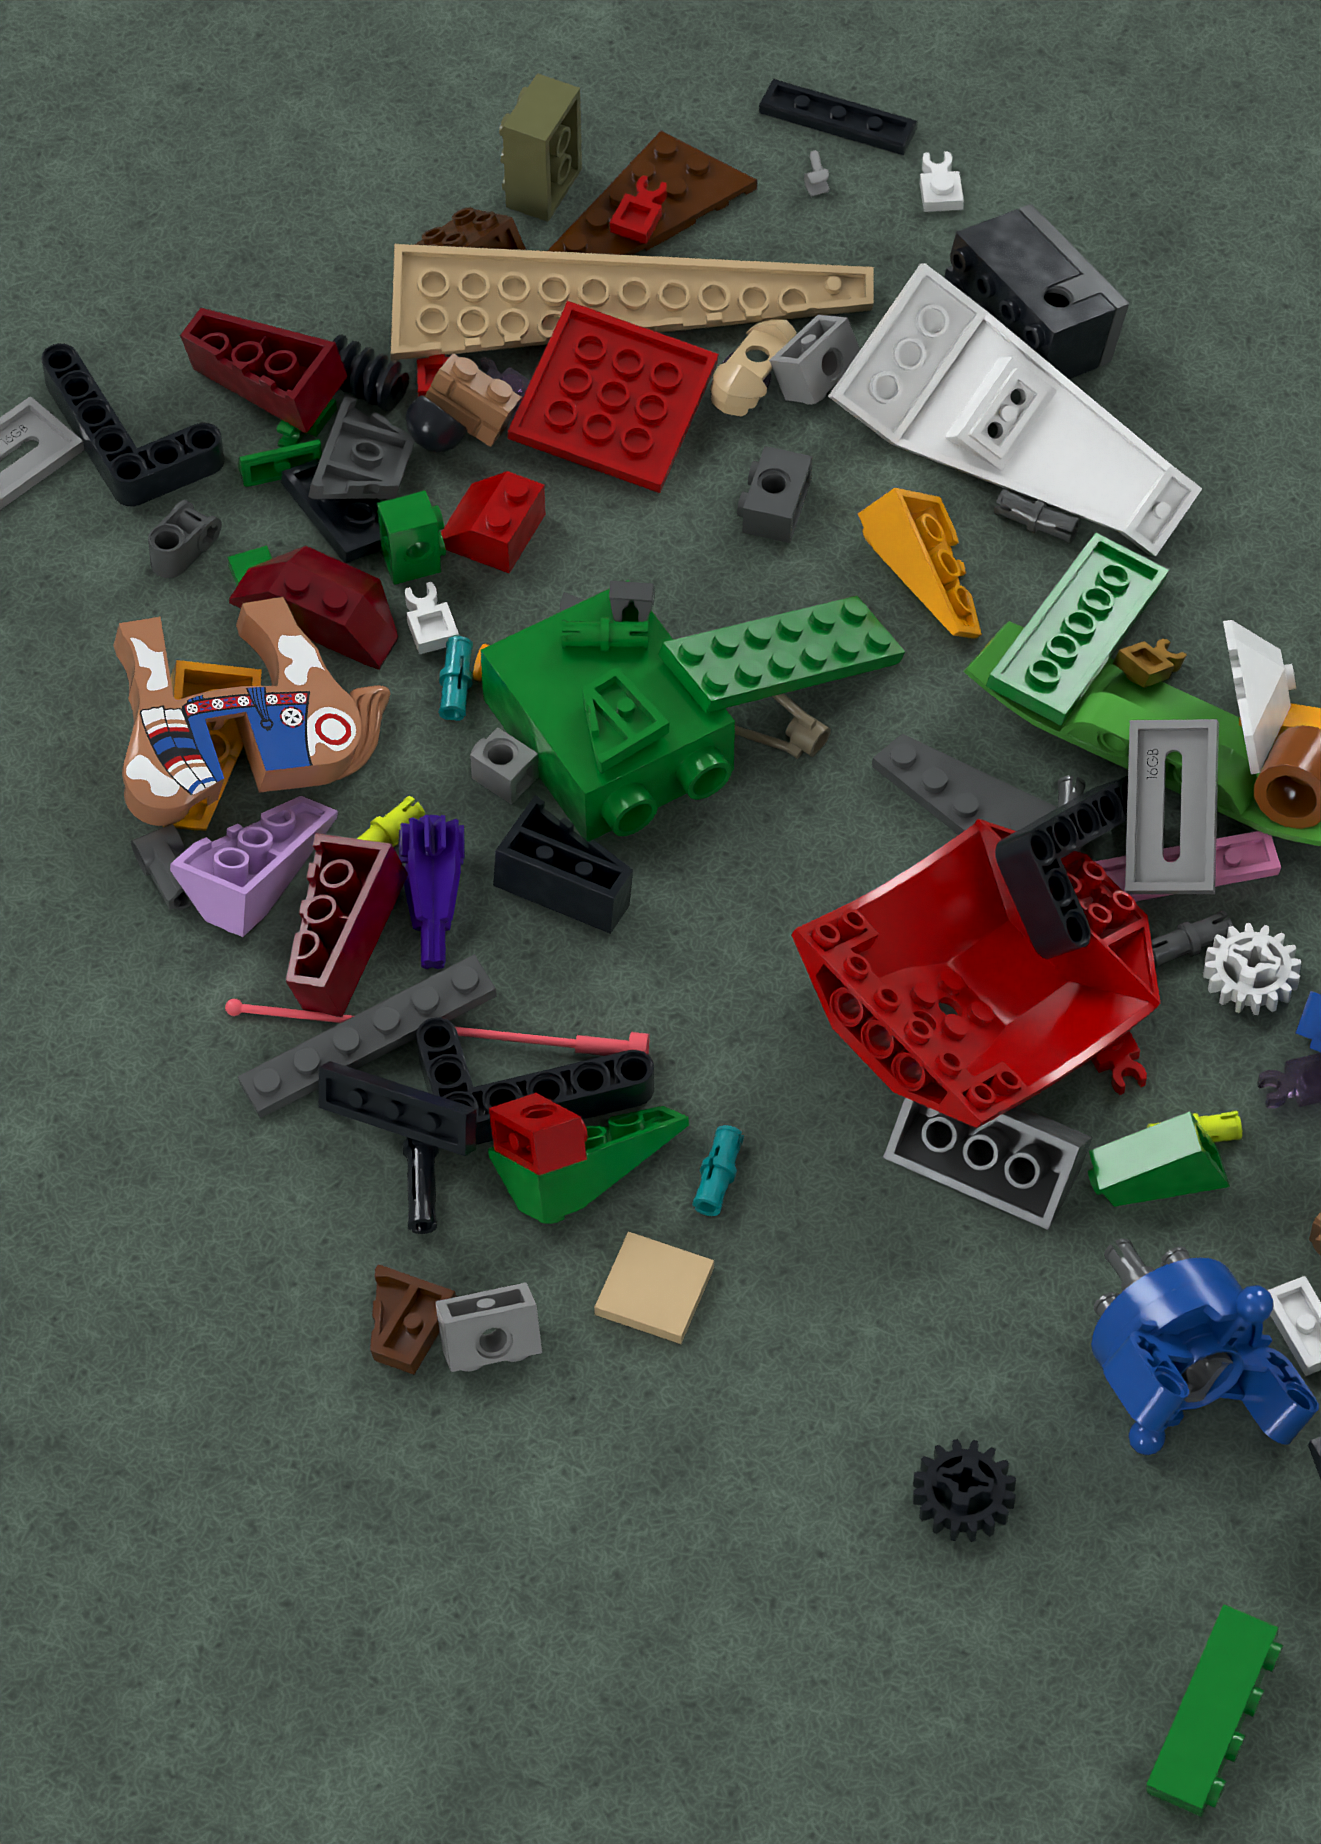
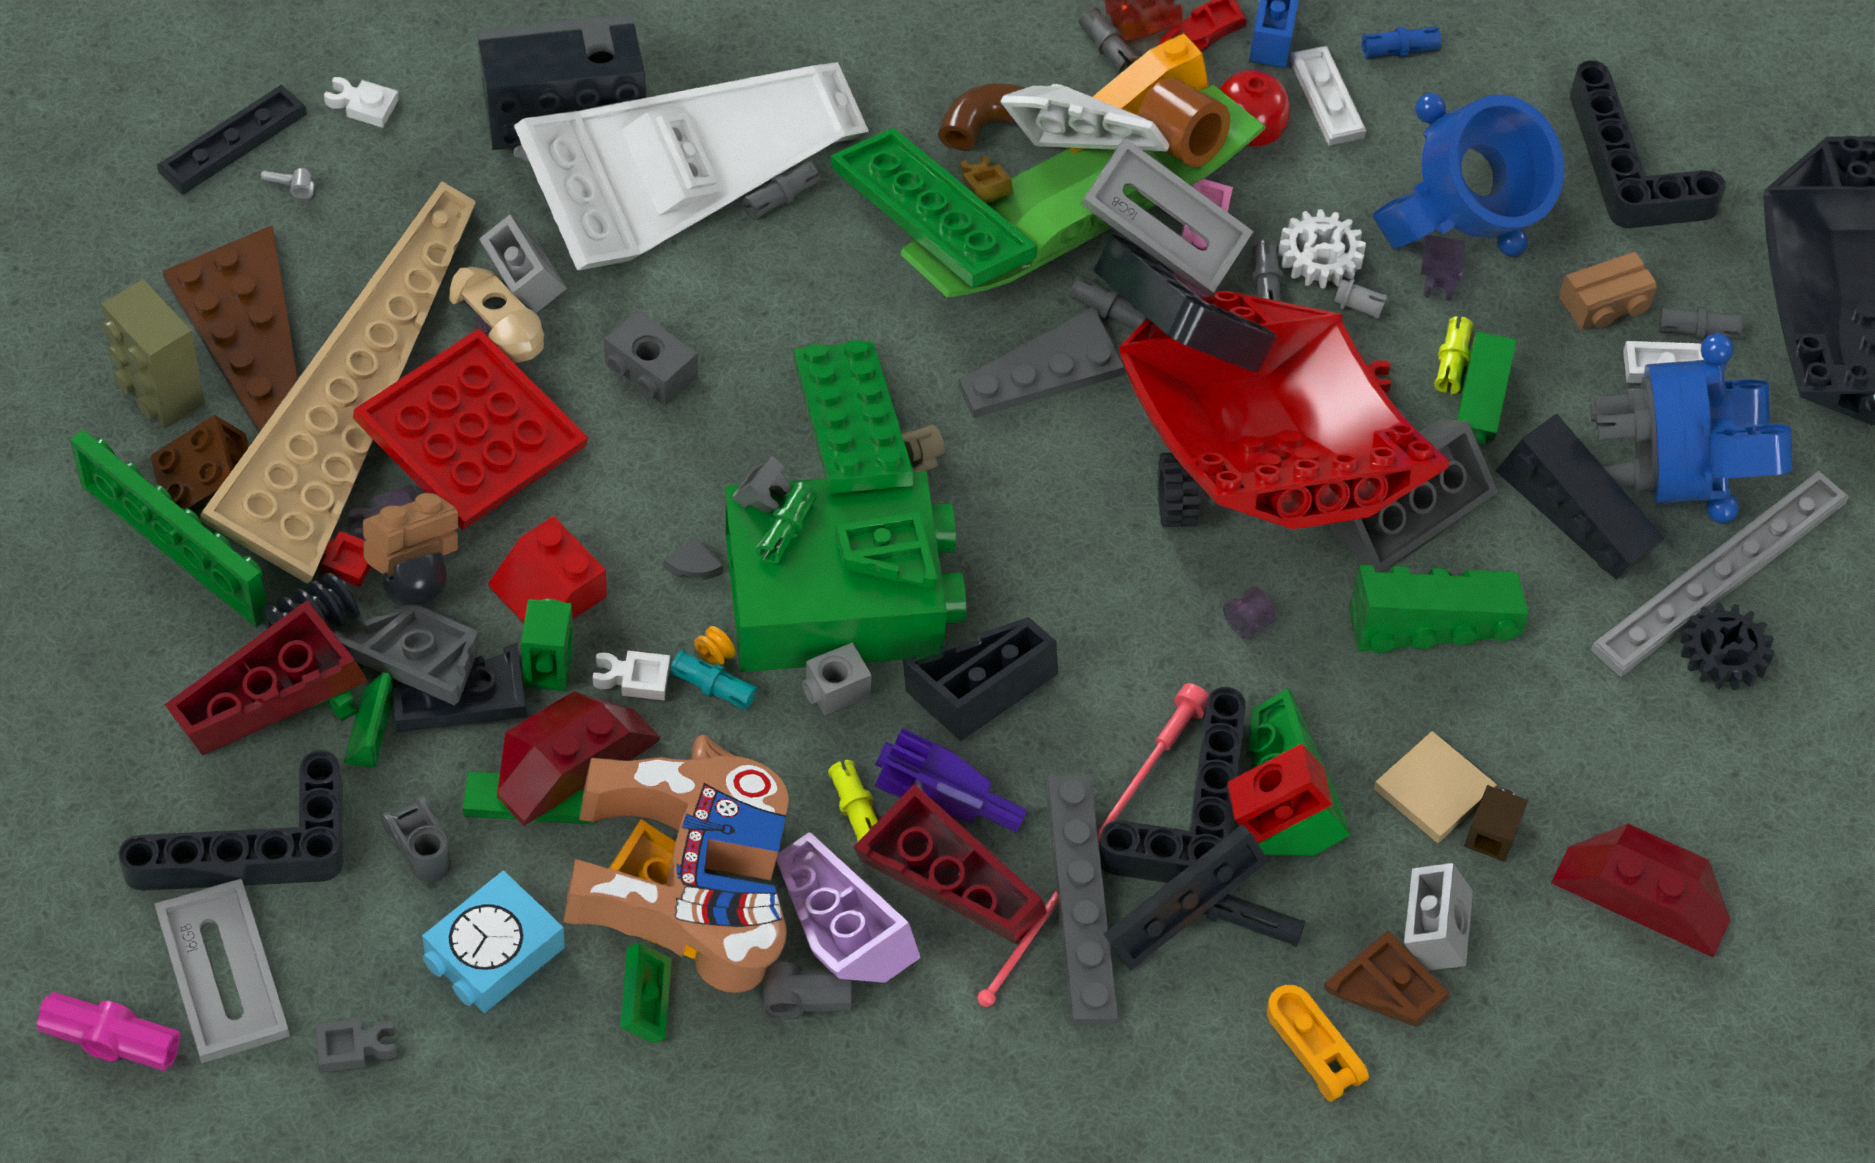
camera: 70 degrees left, 0 degrees up
(86, 623) = (492, 942): none -> medium azure brick
(97, 755) = (646, 993): none -> green plate
(311, 1277) = (1314, 1041): none -> light orange plate
(390, 224) = (169, 528): none -> green plate
(633, 1347) = (1496, 823): none -> dark brown brick
(636, 1512) = (1648, 884): none -> dark red wedge
(639, 214) = (264, 323): red plate -> none
(718, 1170) = (1320, 678): teal pin -> none
(763, 1059) = (1249, 612): none -> clear purple wheel
(852, 1208) = (1434, 608): none -> green wedge
(915, 541) = (760, 286): light orange wedge -> none
(1063, 1293) = (1579, 497): none -> black wedge
(1069, 1464) = (1719, 573): none -> light grey tile
(1206, 618) = (972, 111): none -> reddish brown cylinder
(1212, 1014) = (1360, 298): none -> light grey pin

